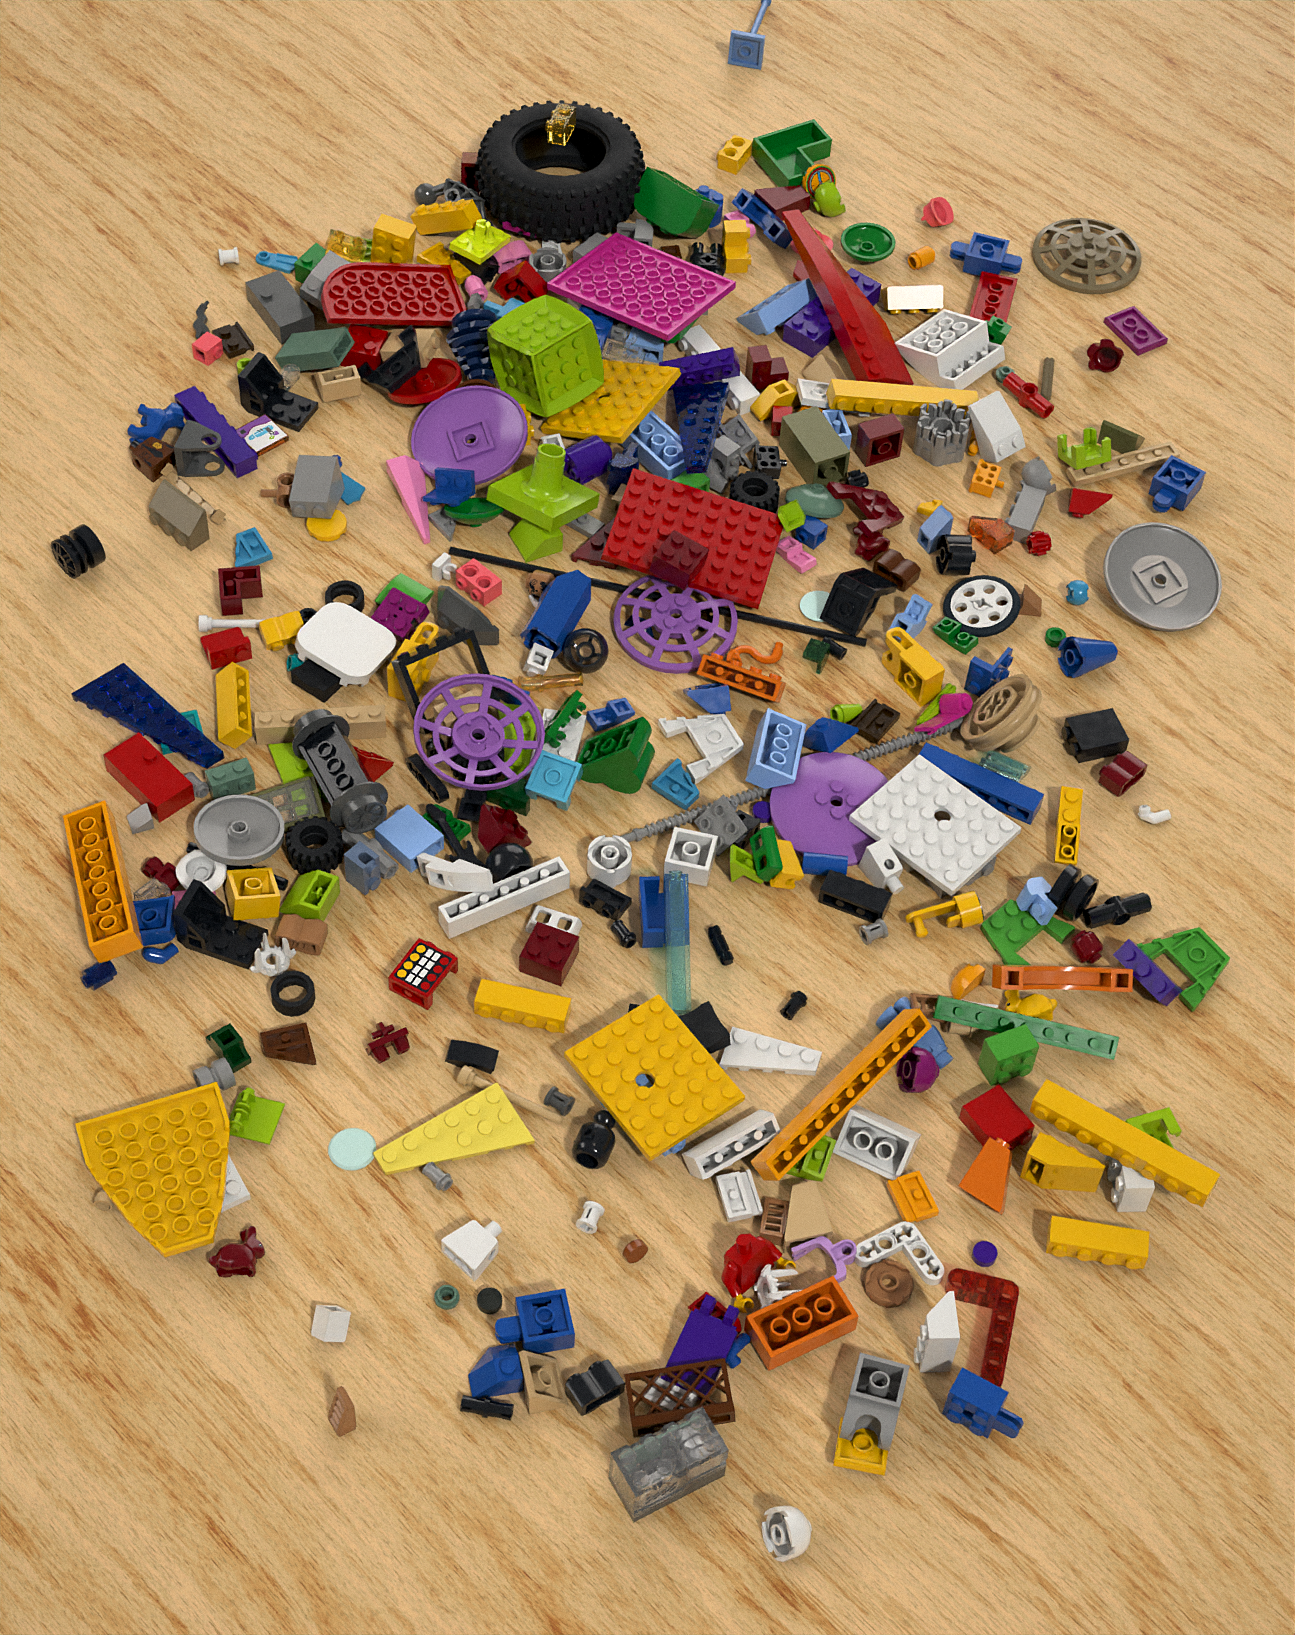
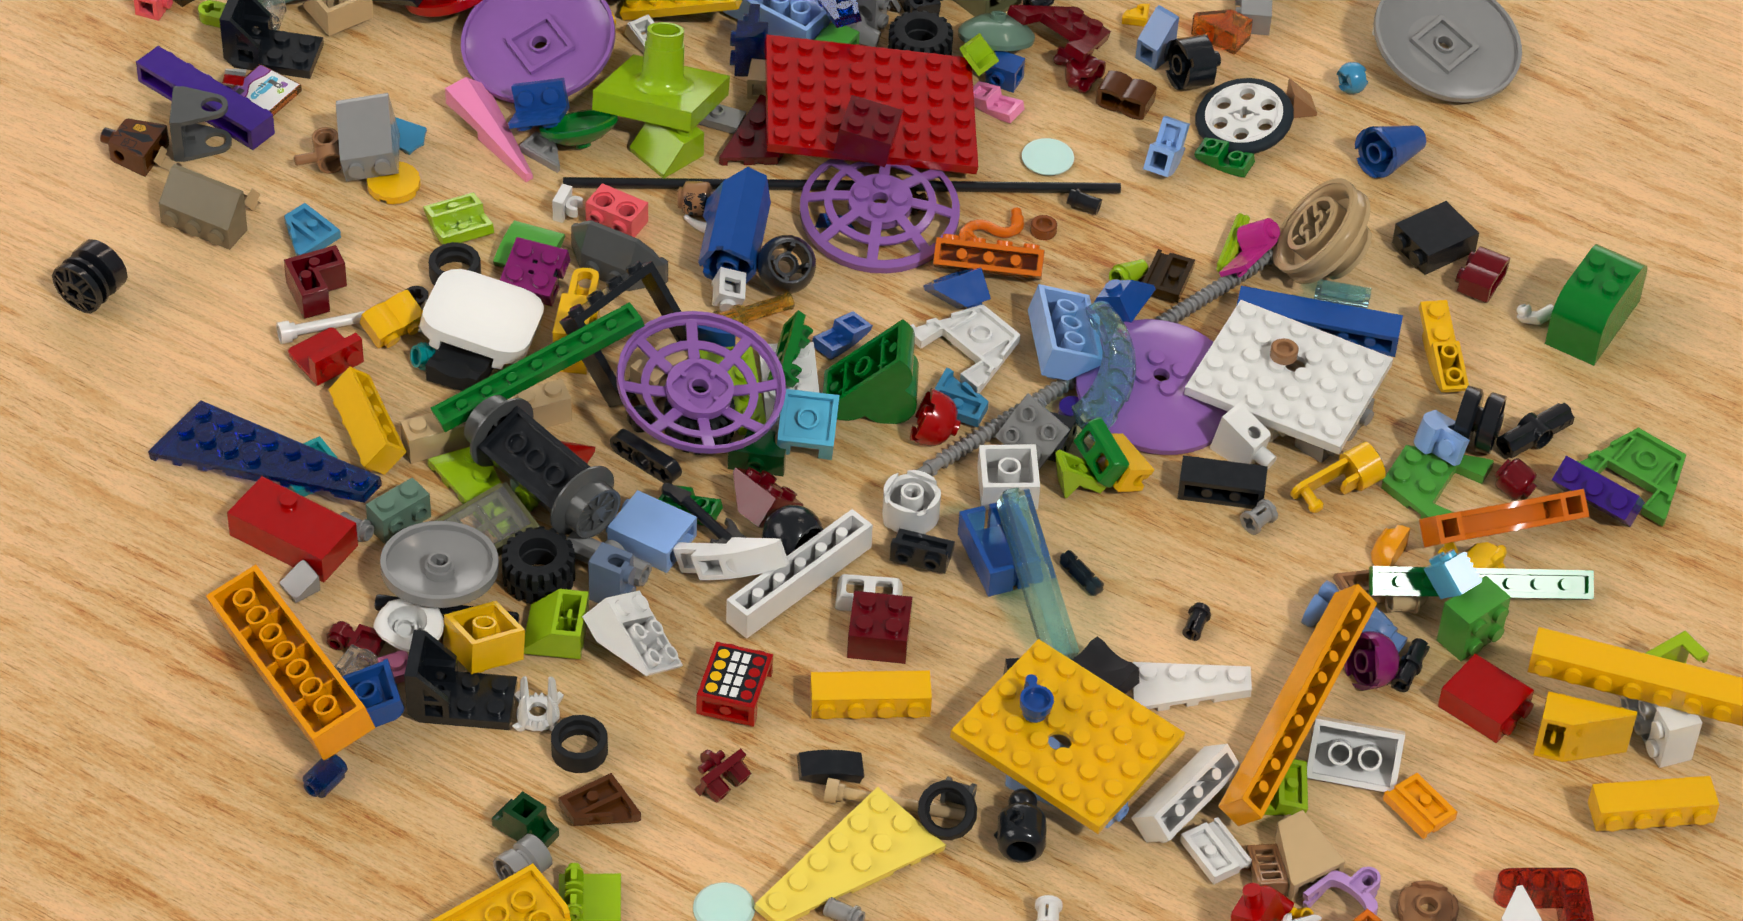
camera: 15 degrees left, 5 degrees down
(156, 422) = (124, 100): blue animal -> none
(160, 956) = (391, 737): blue arm -> none
(242, 420) = (234, 76): none -> sticker
(302, 934) = (570, 670): medium nougat brick -> none
(361, 917) = (632, 633): none -> white slope
(363, 563) = (458, 219): none -> lime slope
(364, 692) = (540, 365): none -> green plate
(471, 805) = (713, 475): black slope -> none
(526, 1107) = (950, 787): none -> black tyre
(587, 459) = (704, 36): dark purple cylinder -> none
(626, 938) = (964, 588): black pin -> none
(633, 1044) = (1035, 700): none -> blue piece
(653, 798) = (935, 419): none -> red cylinder
(795, 662) = (1043, 227): none -> dark orange tile
(800, 789) = (1117, 369): none -> clear light blue brick
(817, 652) = (1068, 209): clear green panel -> none
(821, 863) = (1170, 451): blue pin -> none
(855, 599) = (1091, 140): black bracket -> none
(907, 1245) = (1432, 860): white beam -> none
(912, 667) = (1191, 202): yellow brick -> none
(935, 804) = (1284, 351): none -> medium nougat tile
(947, 1080) = (1410, 665): none -> black pin
(984, 675) = (1282, 193): blue bracket -> none
(984, 1254) = (1526, 849): dark purple tile -> none
(989, 1175) = (1502, 758): orange slope -> none
(997, 1017) = (1452, 574): none -> medium azure brick
(1039, 543) = (1285, 30): red gear -> none
(1054, 636) = (1343, 135): green tile -> none
(1201, 817) = (1595, 304): none -> green brick

